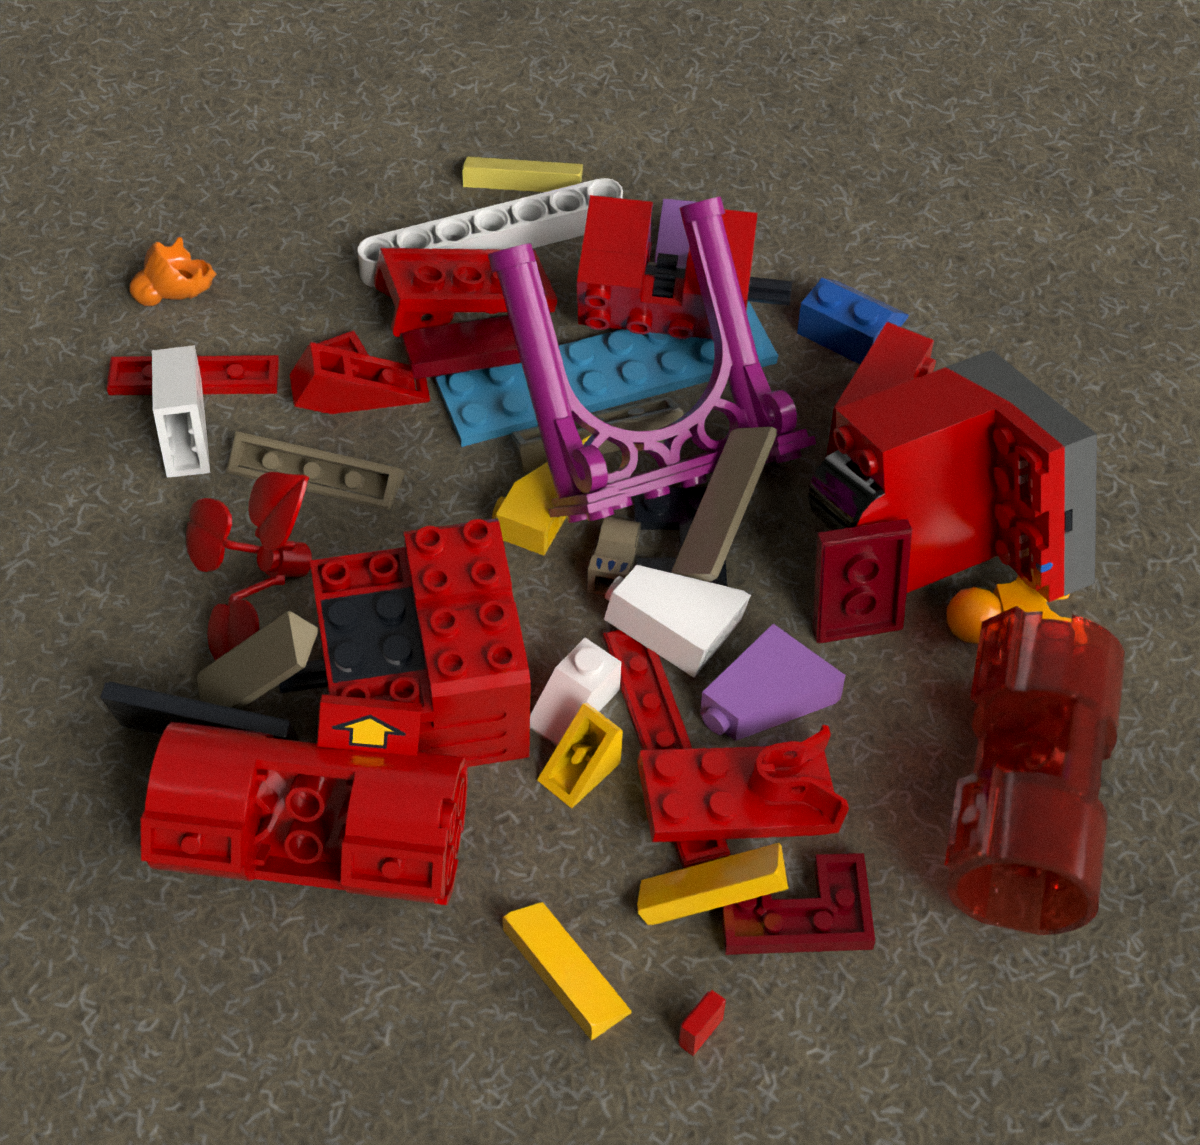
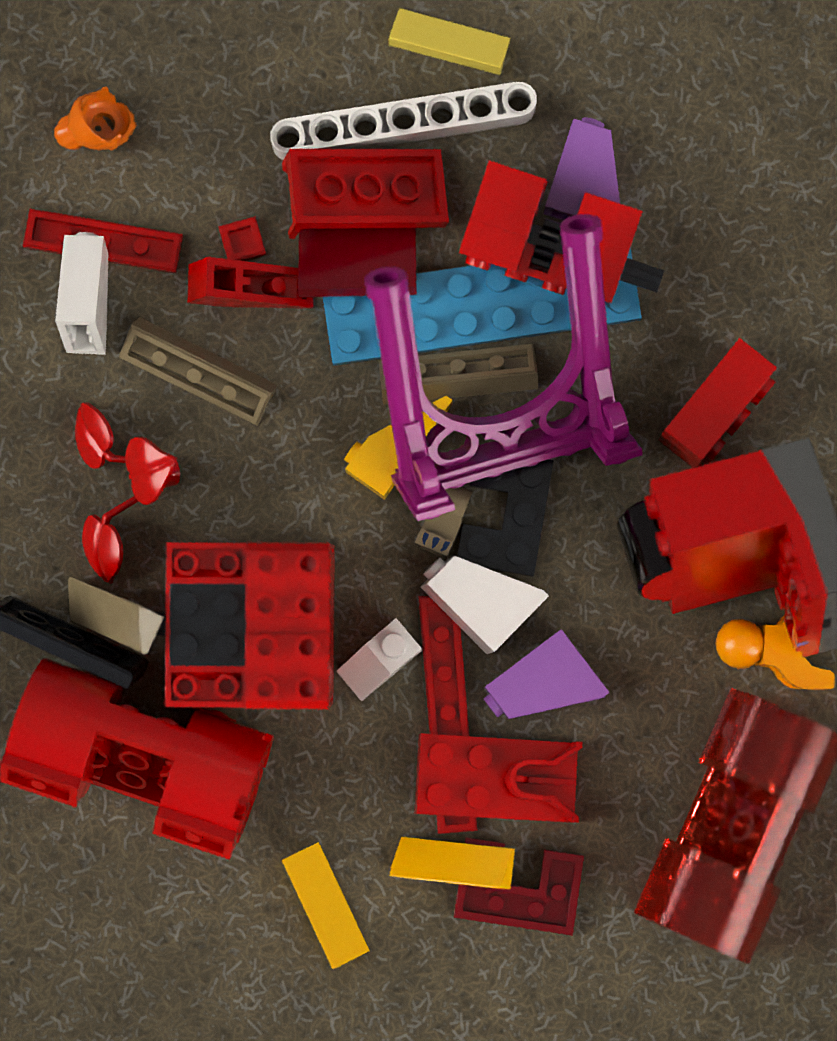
camera: 15 degrees right, 30 degrees up
(369, 725) = (192, 716): red tile -> none
(583, 756) = (371, 724): yellow slope -> none
(701, 1022) = (419, 978): red tile -> none
(724, 503) = (545, 503): dark tan slope -> none
(844, 318) = (722, 286): blue slope -> none
(861, 580) = (644, 612): dark red tile -> none

